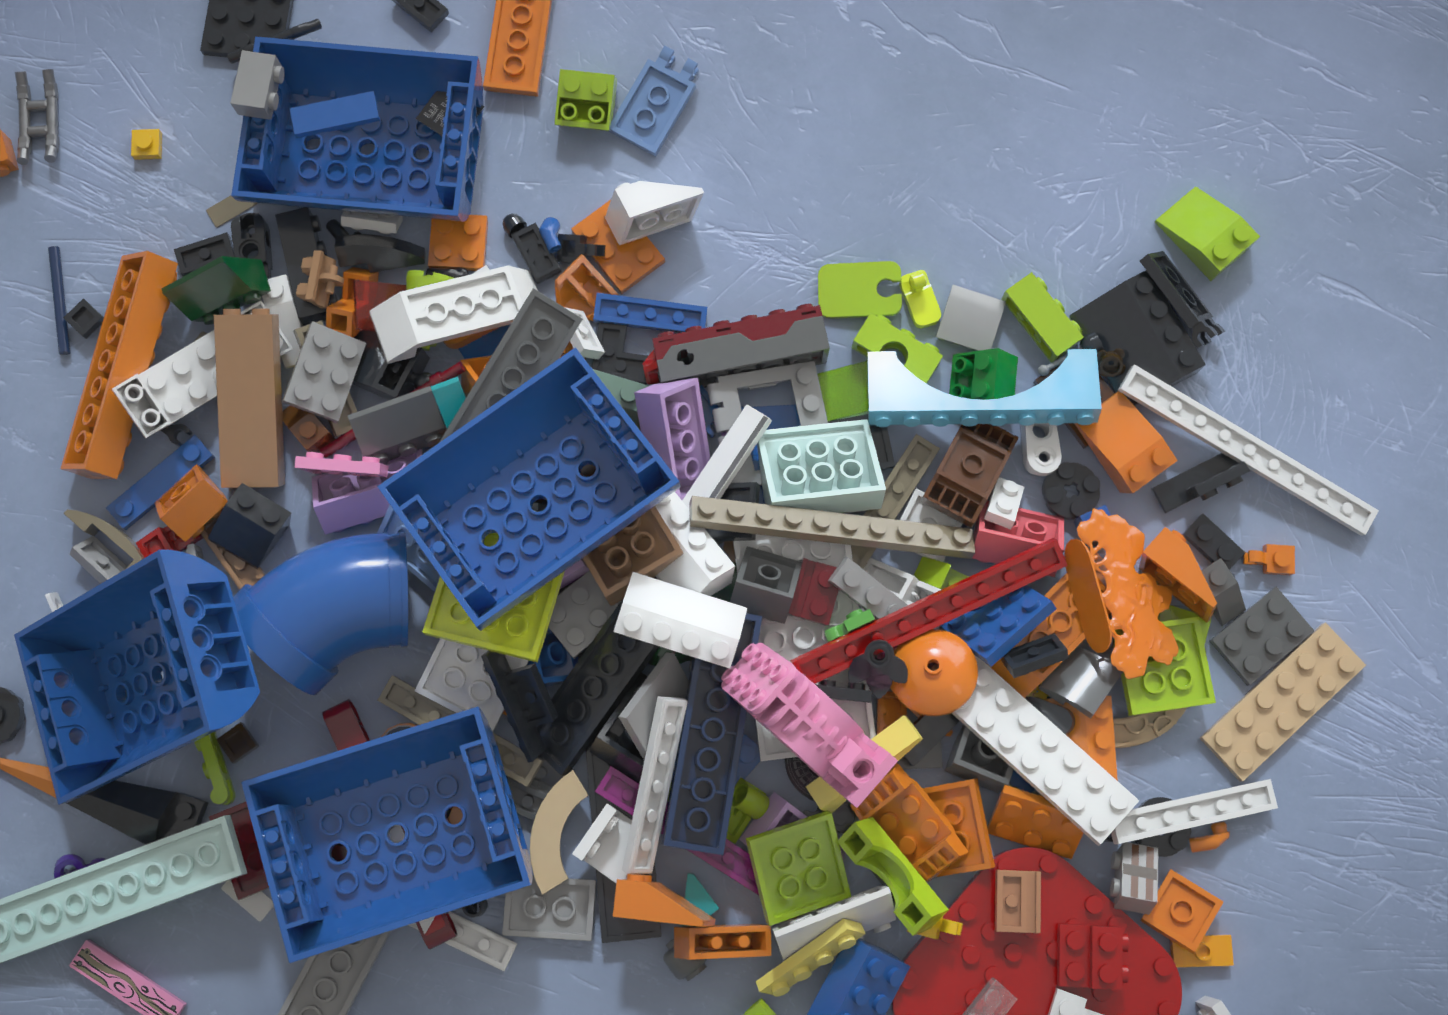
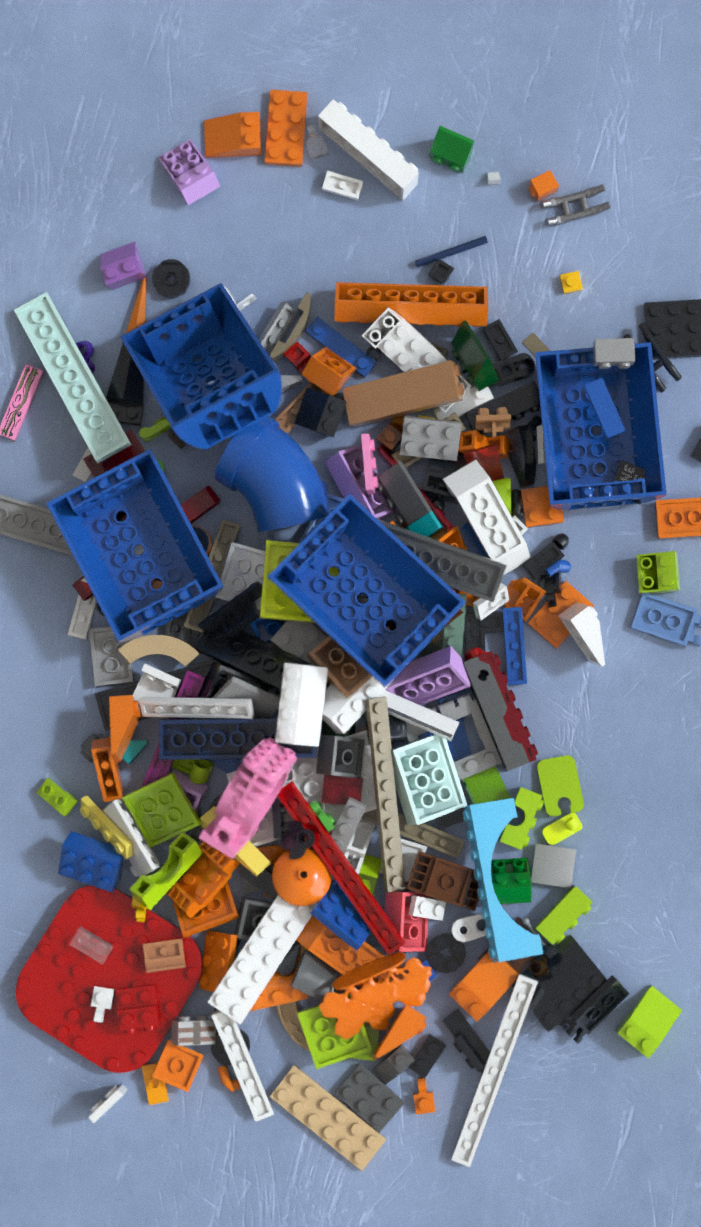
camera: 85 degrees right, 5 degrees up
(1035, 655) = (323, 941): black plate -> none

